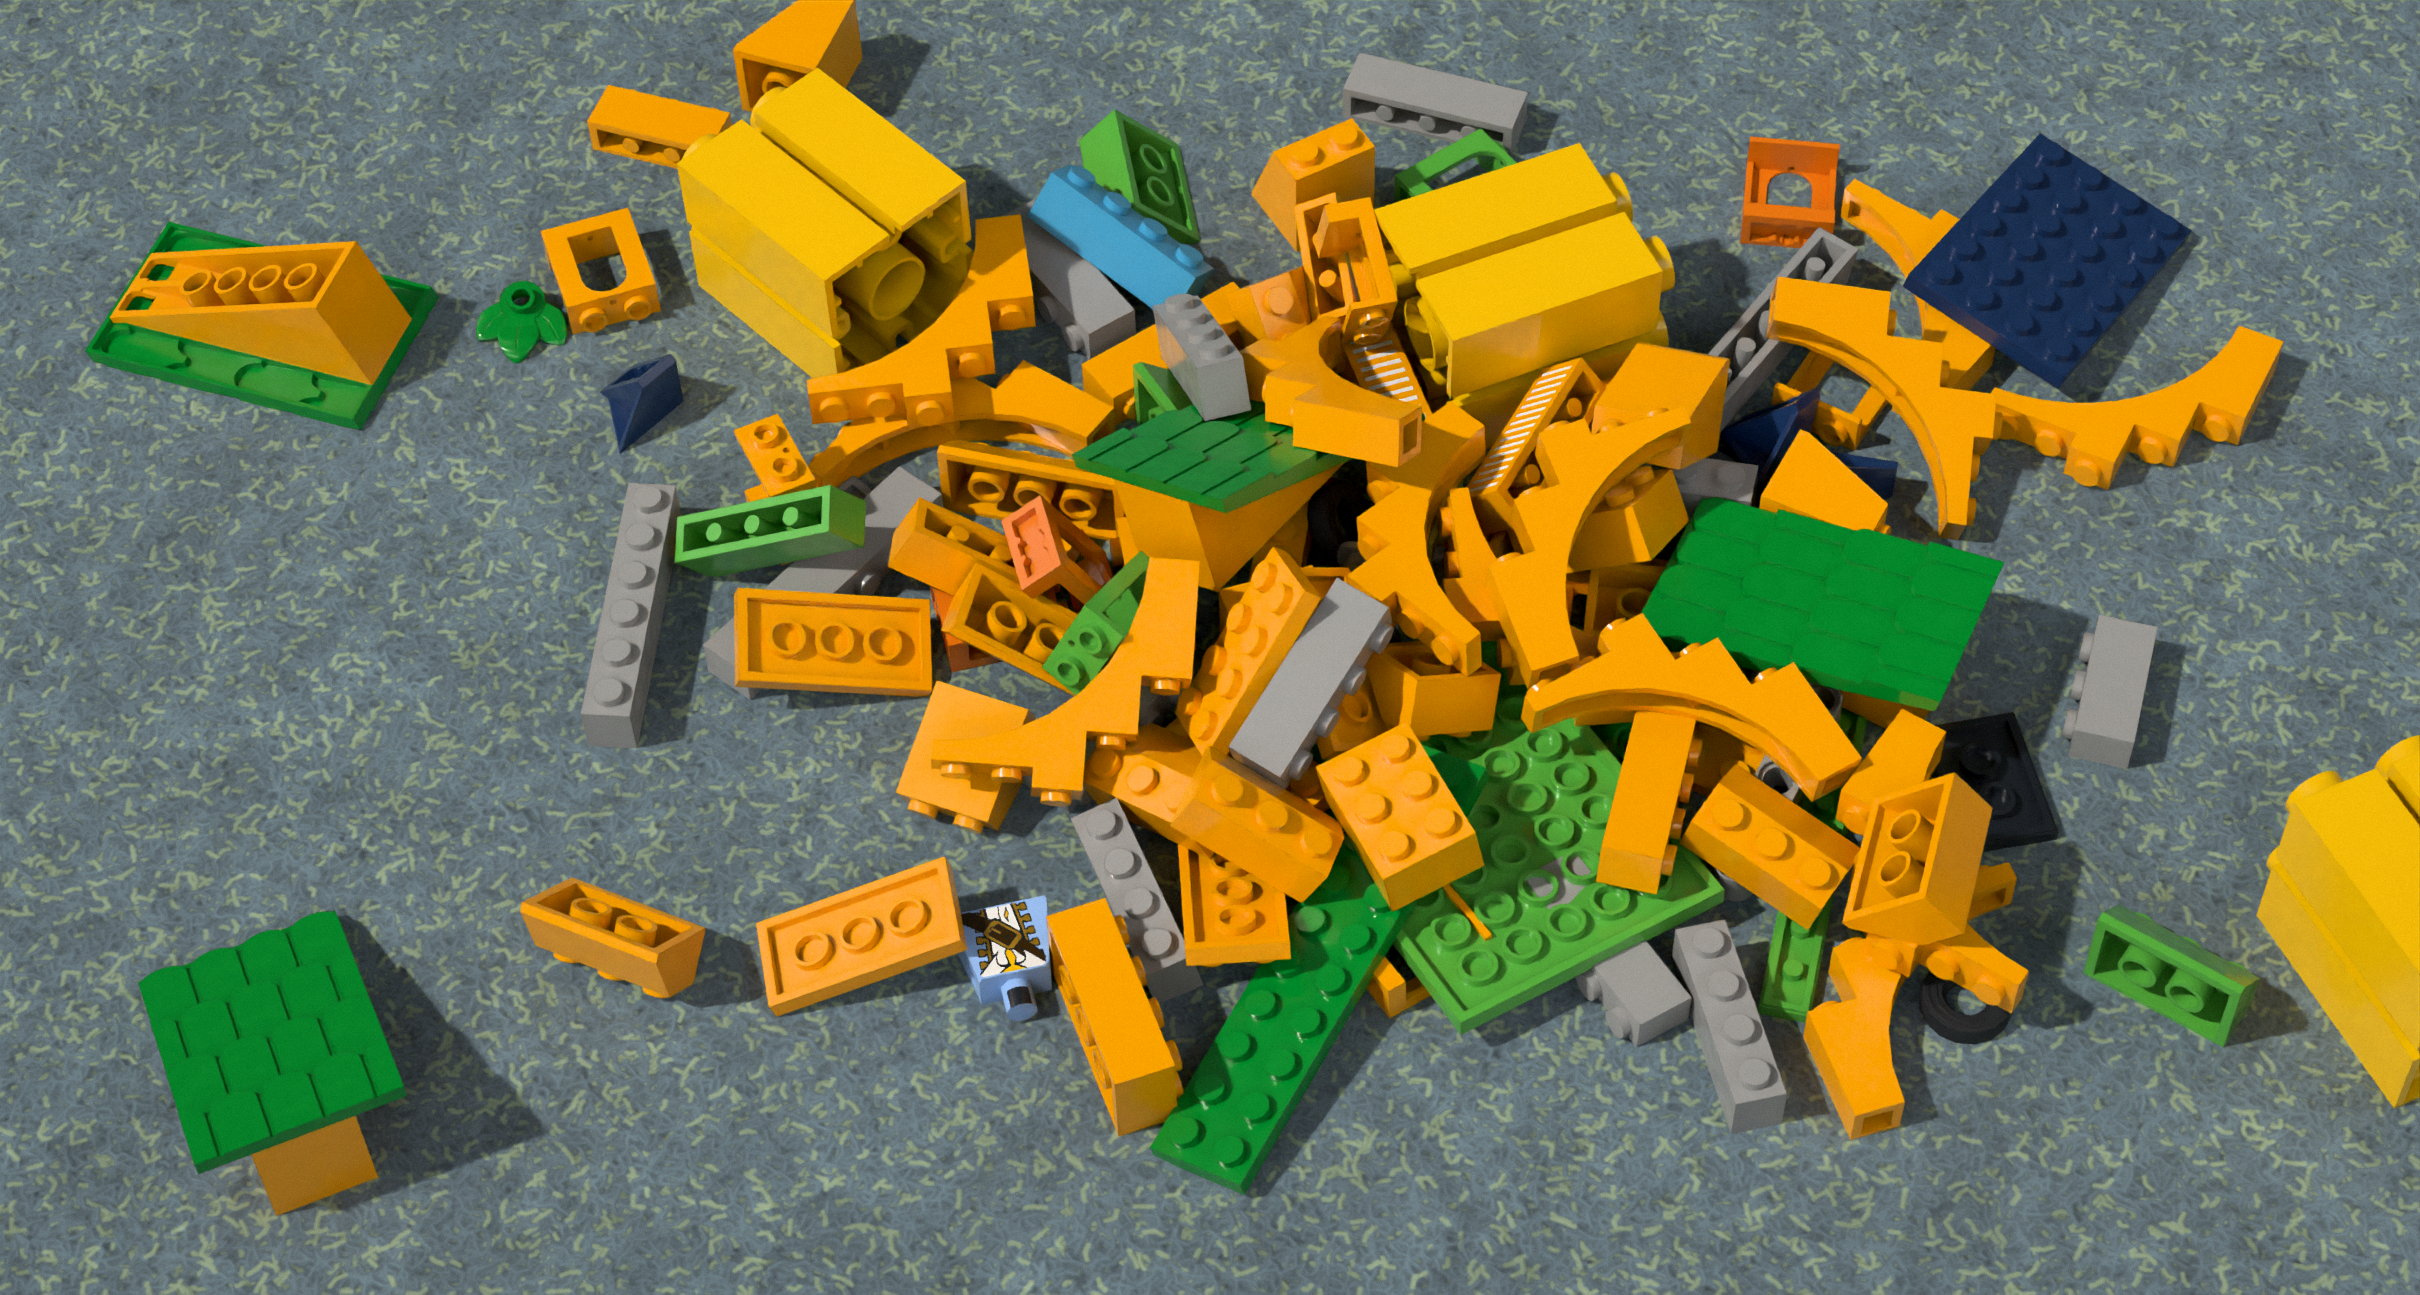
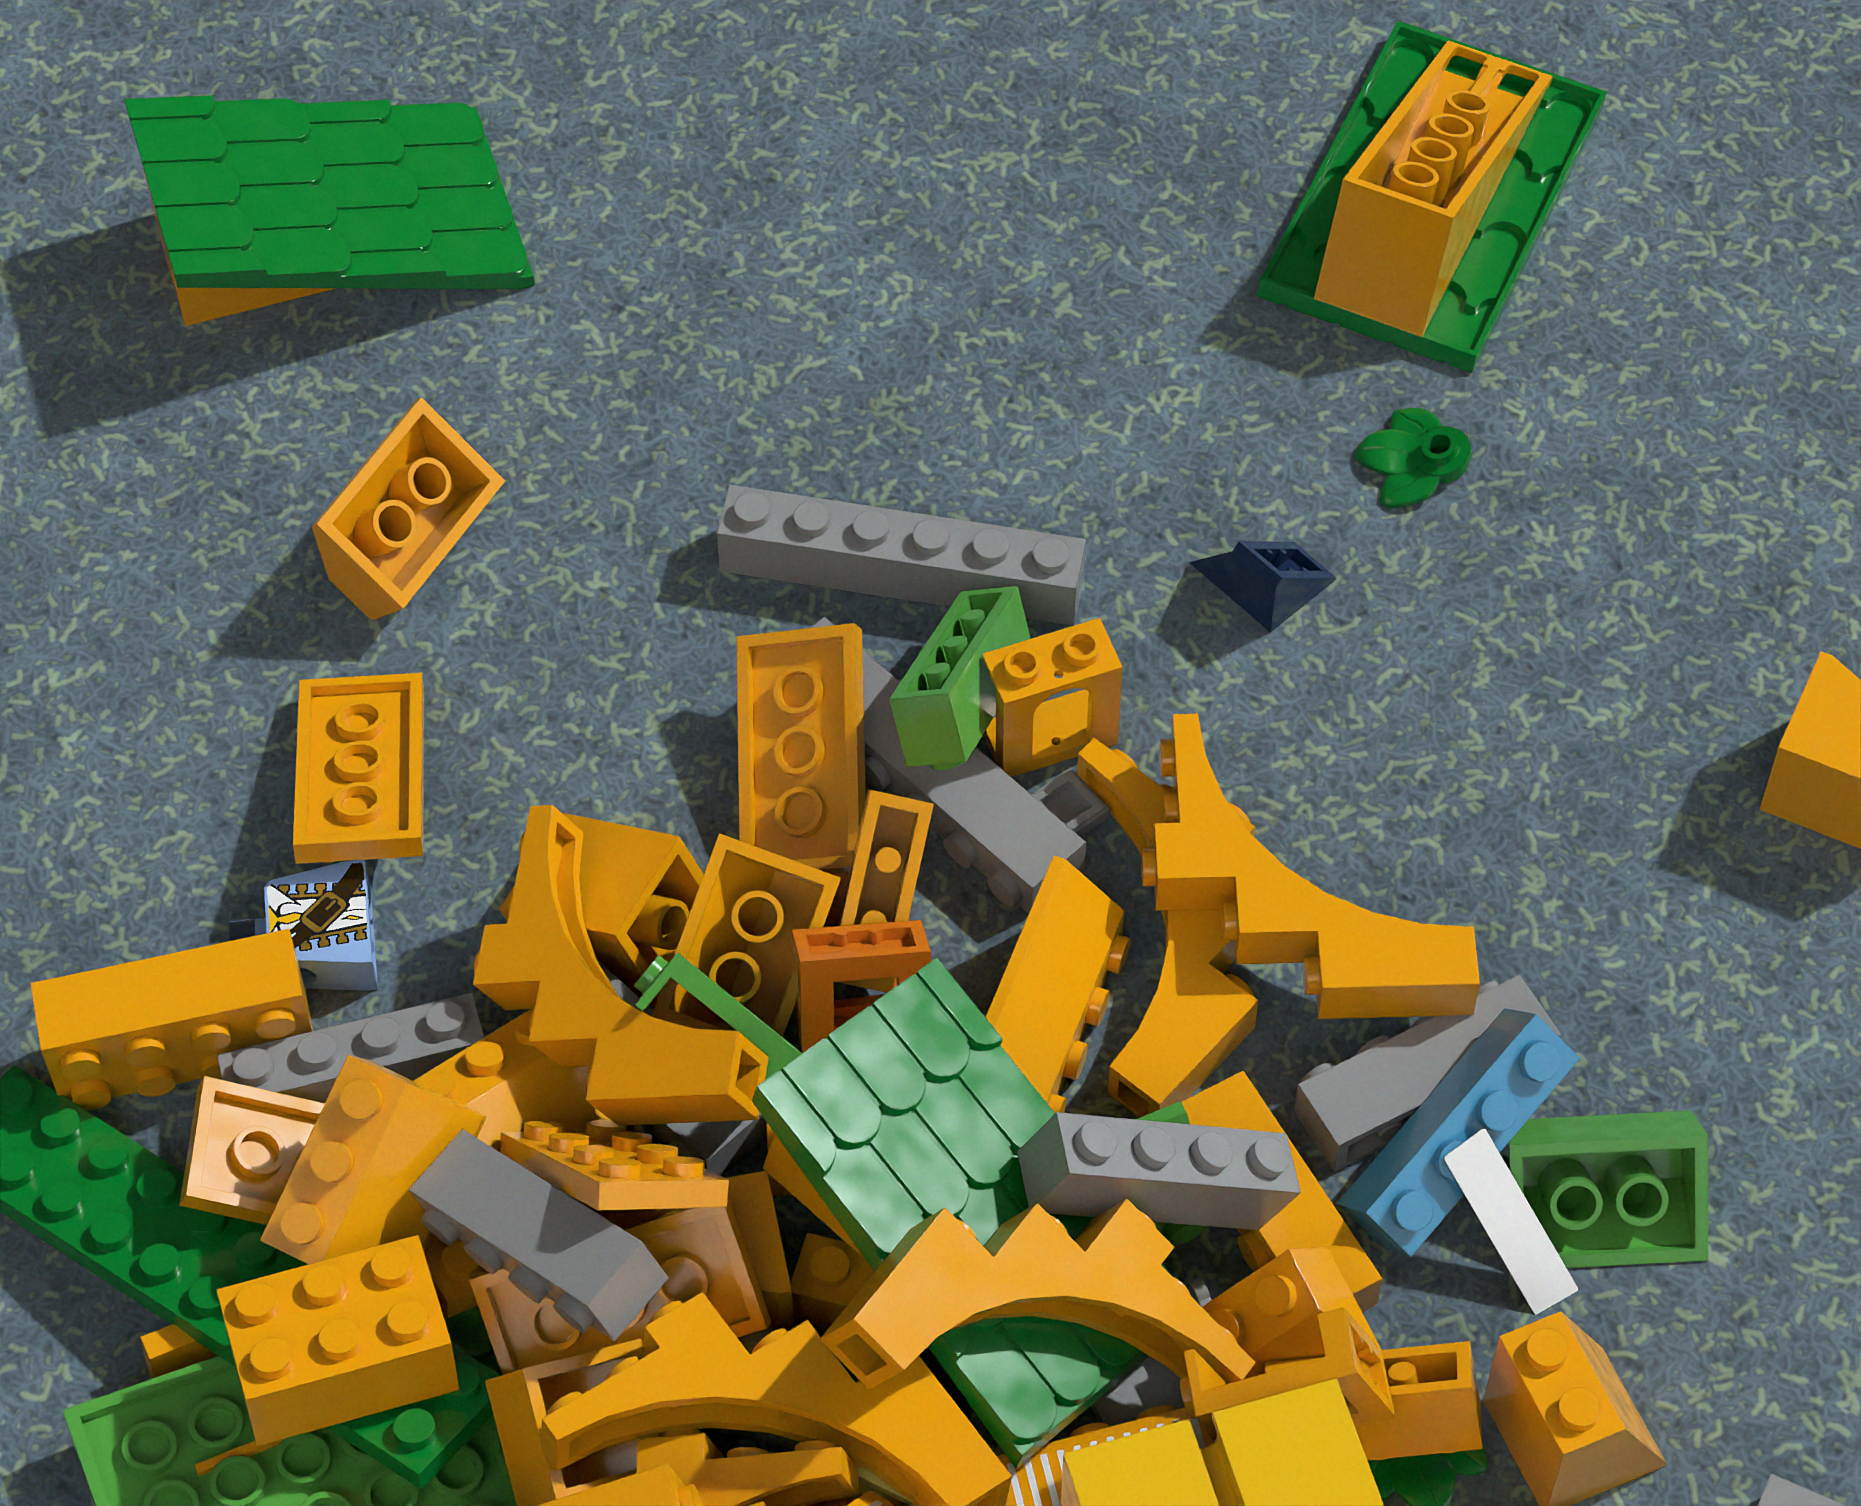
camera: 95 degrees right, 5 degrees up
(594, 239) = (1441, 569): light orange panel -> none
(650, 125) = (1743, 608): light orange brick -> none
(825, 226) = (1462, 737): yellow brick -> none
(1181, 218) = (1510, 1222): none -> white sticker

